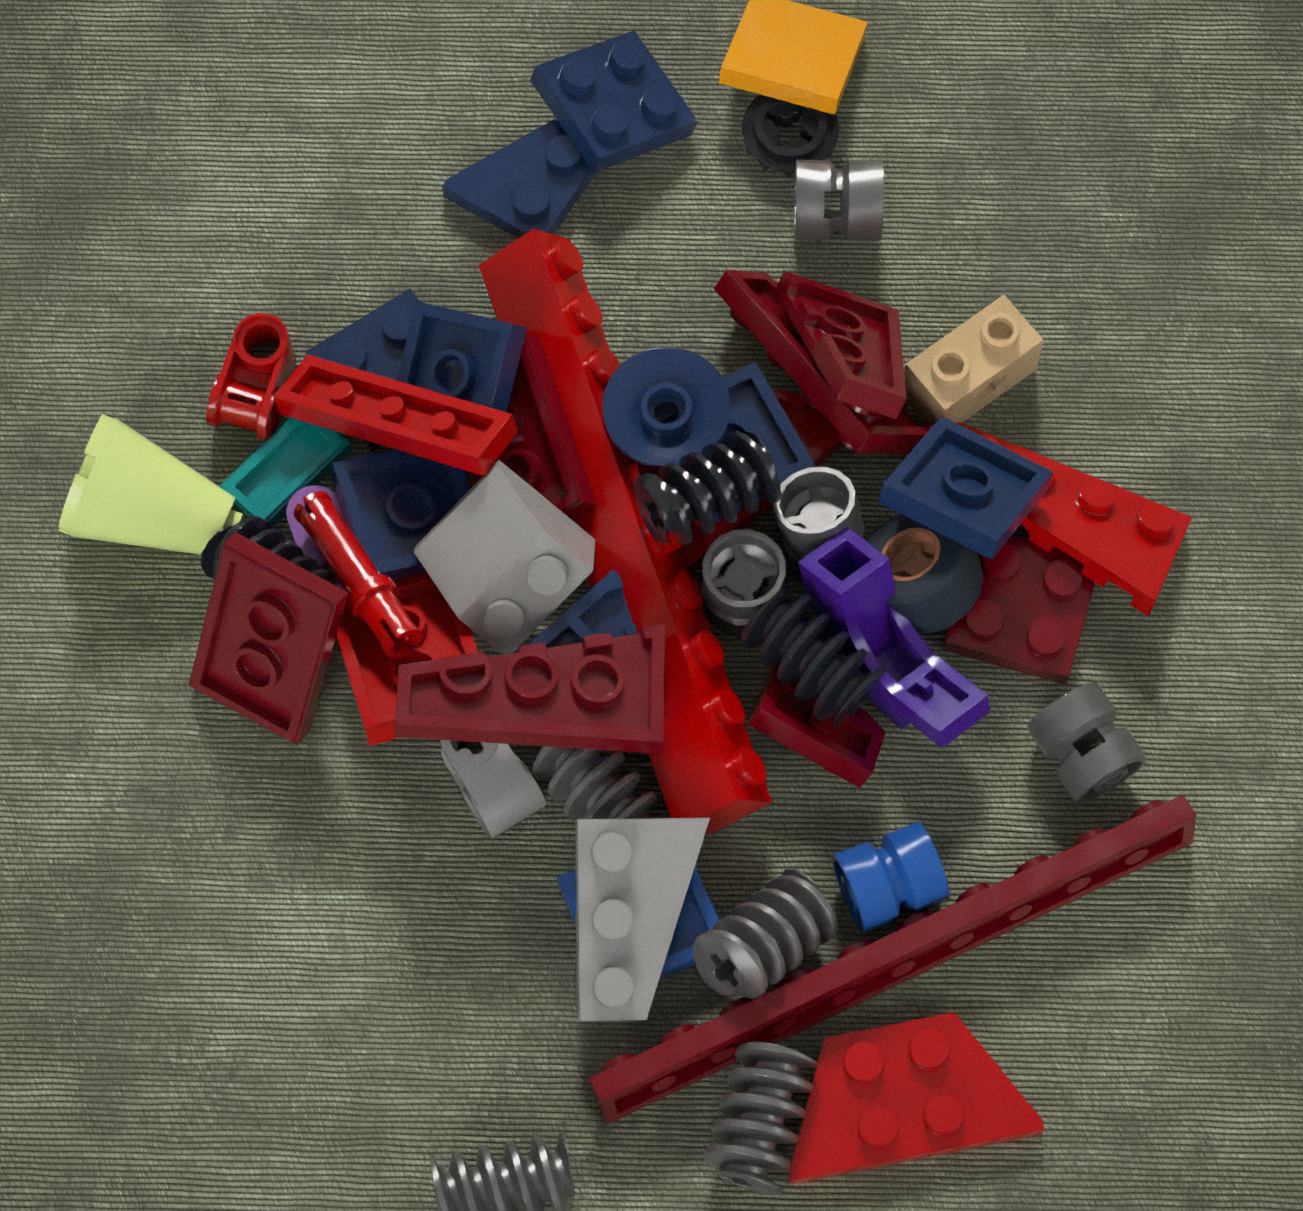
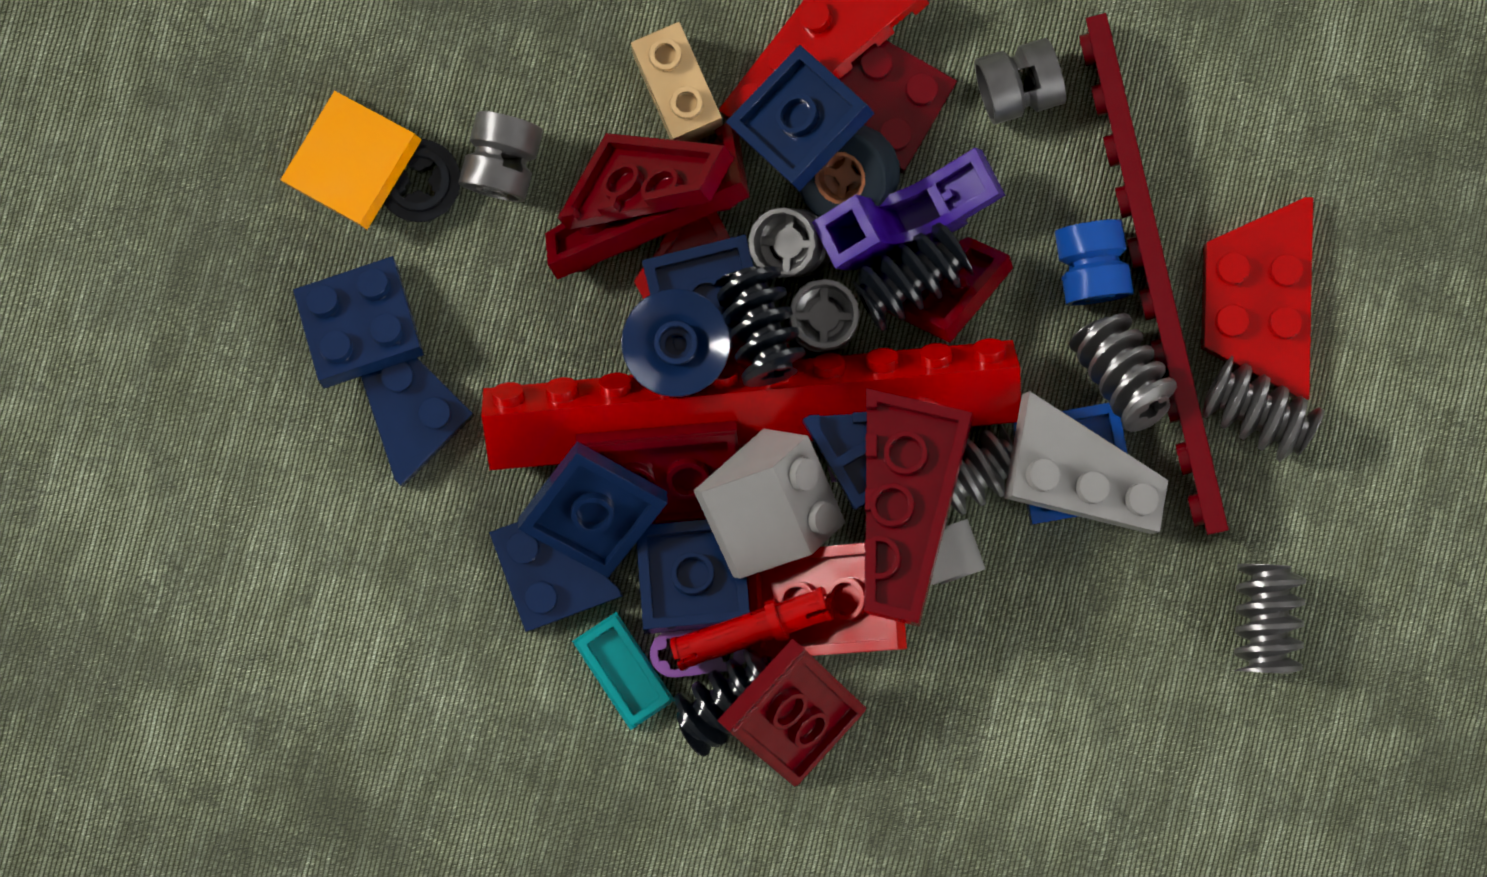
camera: 75 degrees left, 15 degrees up
(142, 495) = (631, 792): yellowish green cone -> none
(247, 384) = (546, 682): red piece -> none
(396, 414) = (620, 567): red plate -> none

